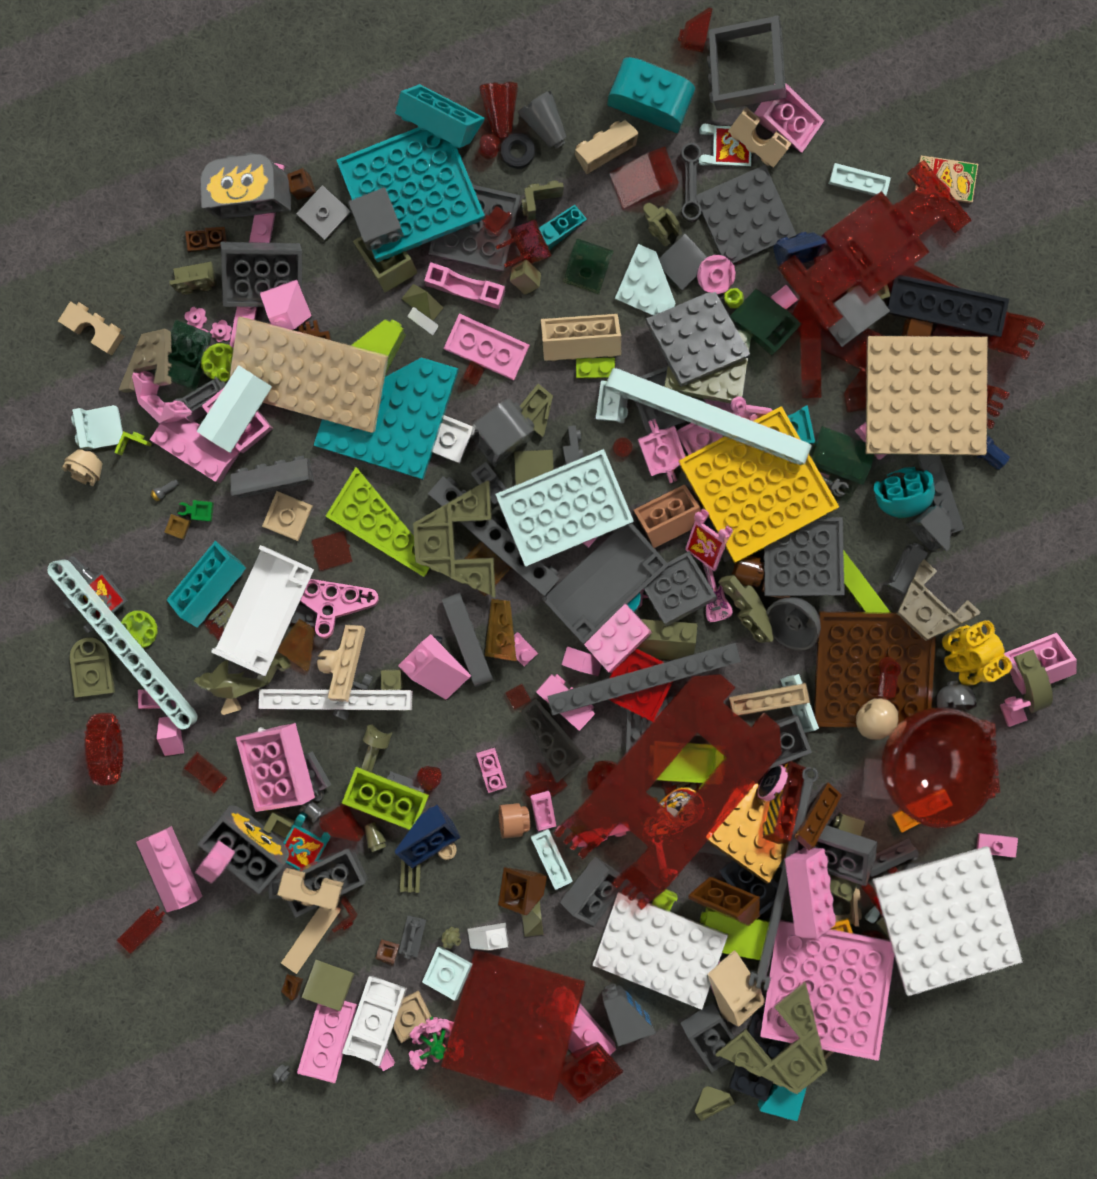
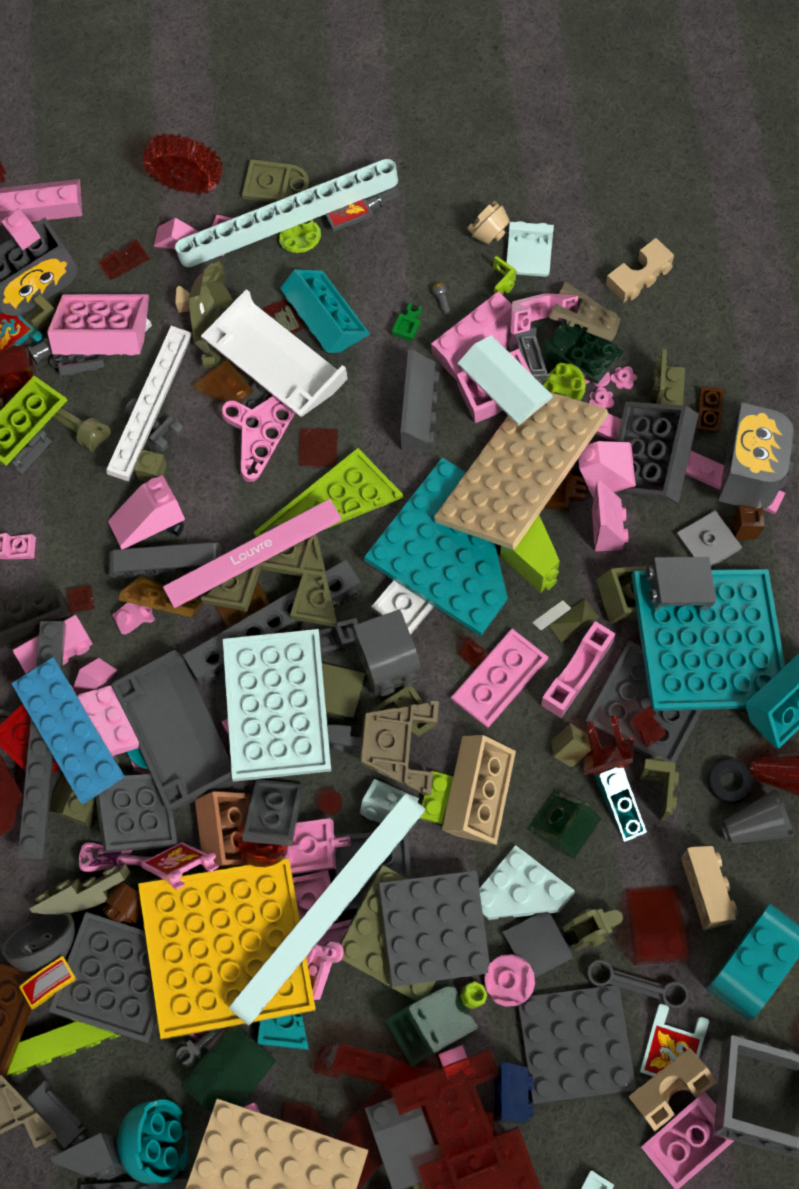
camera: 105 degrees right, 20 degrees down
(177, 526) = (396, 299): pearl gold plate -> none
(287, 516) = (372, 412): tan tile -> none
(333, 294) = (608, 520): none -> bright pink slope
(343, 663) = (187, 420): tan plate -> none
(429, 777) = (27, 476): clear red cone -> none
(446, 567) = (252, 553): none -> bright pink tile
(489, 146) = (743, 747): clear red piece -> none
(568, 413) = (387, 743): none -> dark tan wing
(635, 658) = (68, 730): none -> dark azure plate
(647, 484) = (273, 812): none -> dark grey tile
(675, 483) = (261, 854): none -> clear red tile
(824, 603) = (47, 982): none -> slope

